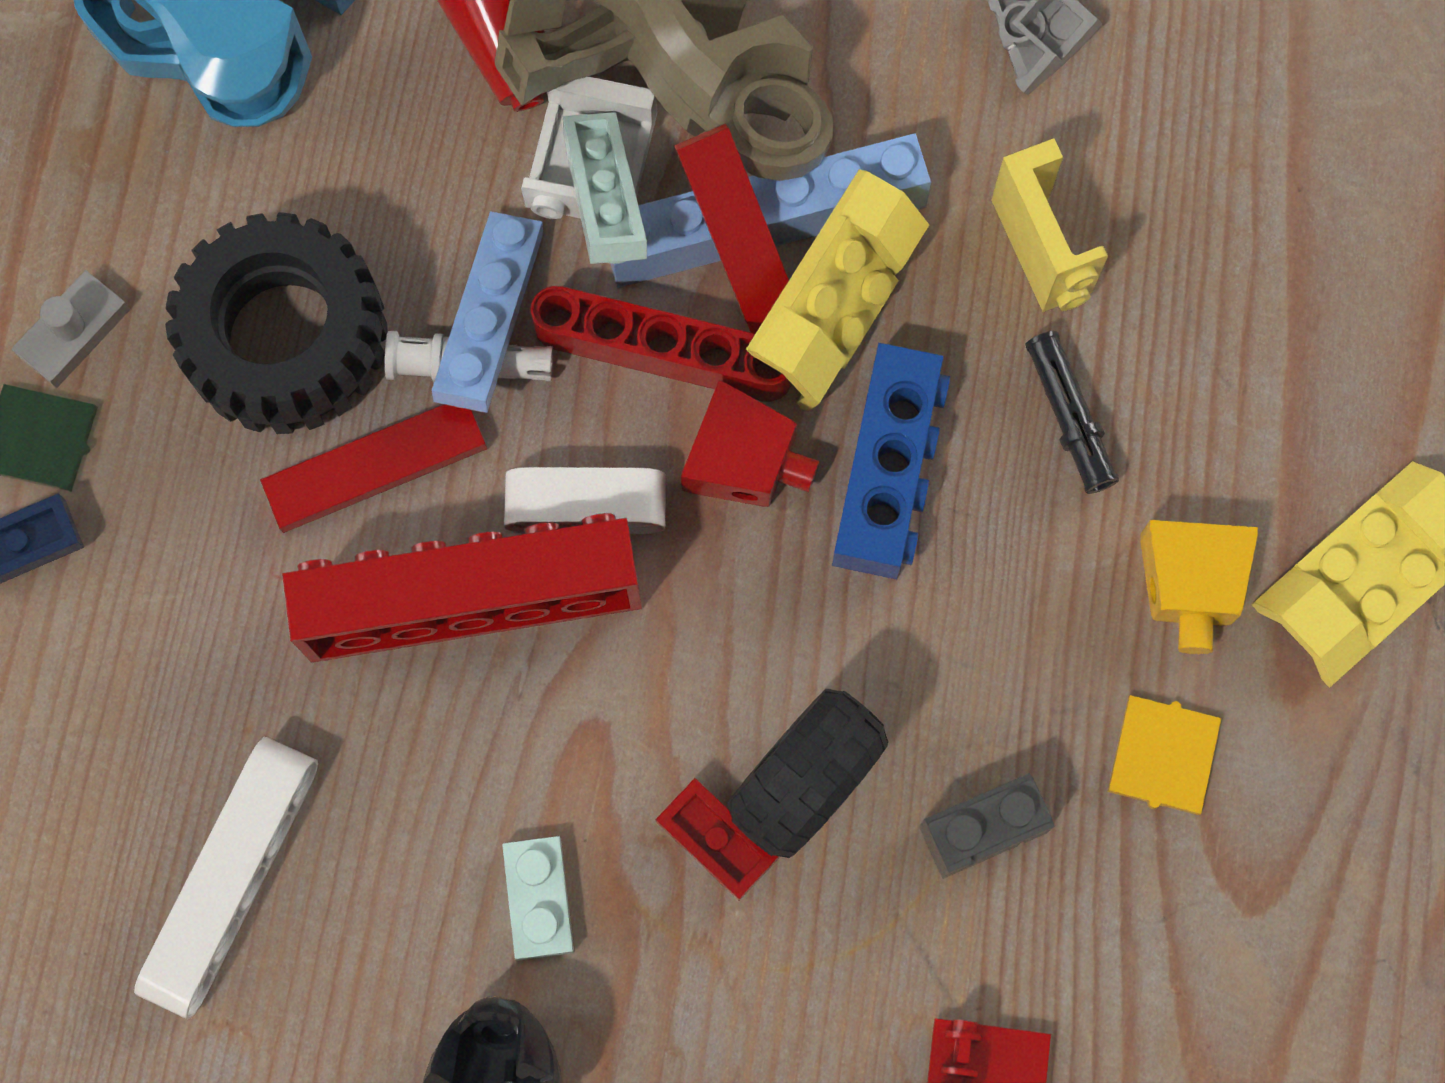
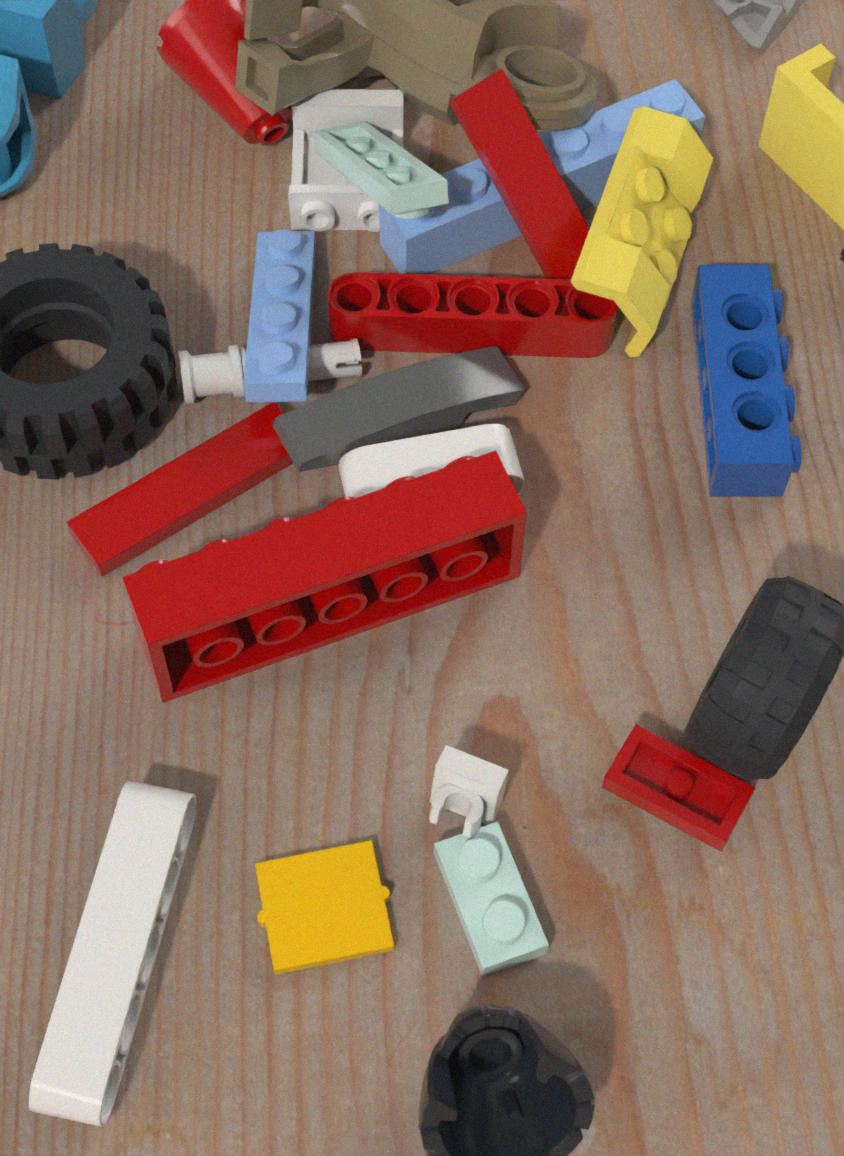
camera: 15 degrees left, 15 degrees down
(403, 874) = (323, 907): none -> yellow piece
(541, 803) = (467, 788): none -> white tile
(572, 427) = (398, 406): none -> dark grey slope
(745, 451) = (590, 397): red torso -> none

